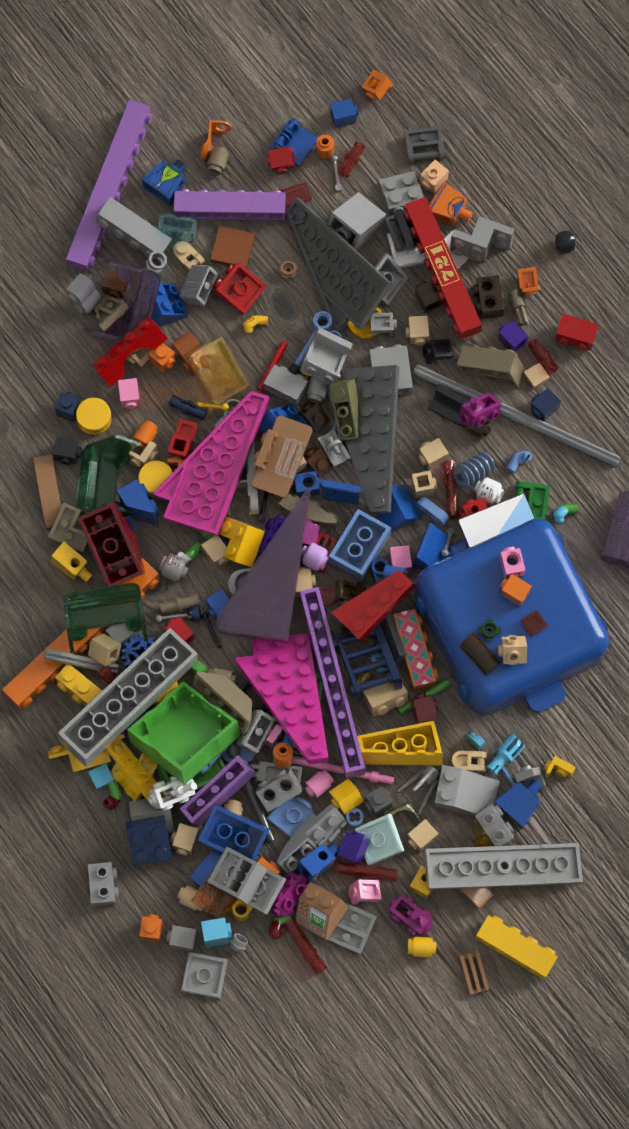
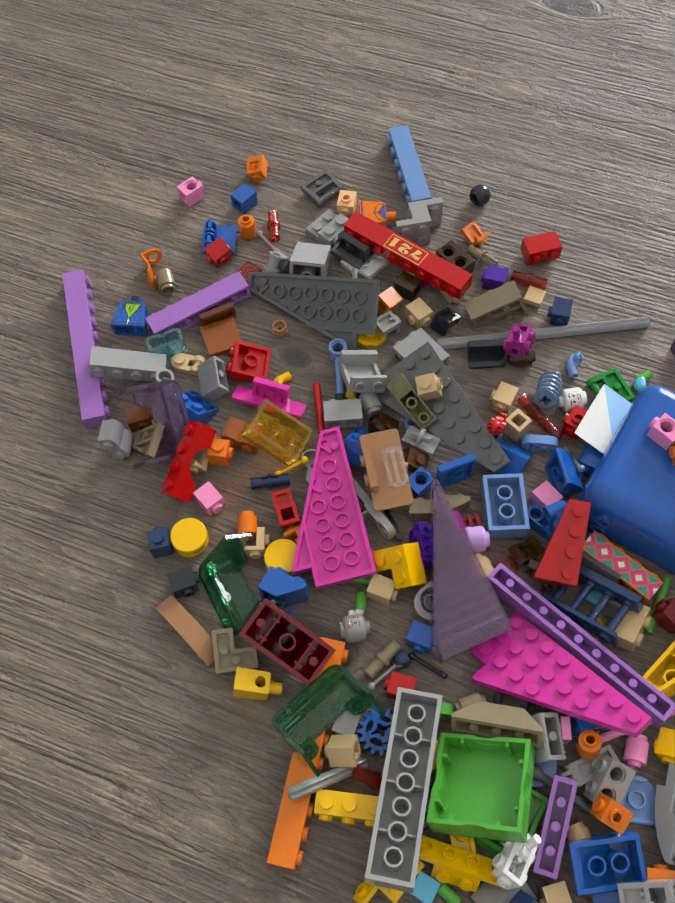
camera: 30 degrees left, 10 degrees down
(235, 332) = (274, 392): none -> dark pink bracket
(242, 223) = (218, 314): none -> reddish brown plate
(261, 806) = (611, 813): none -> orange brick
(299, 81) = (191, 191): none -> bright pink brick
(326, 202) = (277, 262): none -> light grey piece
(365, 407) = (429, 386): none -> tan brick
(398, 302) = (388, 300): none -> brick
(401, 474) = (497, 424): none -> red piece
(520, 172) = (408, 164): none -> medium blue brick

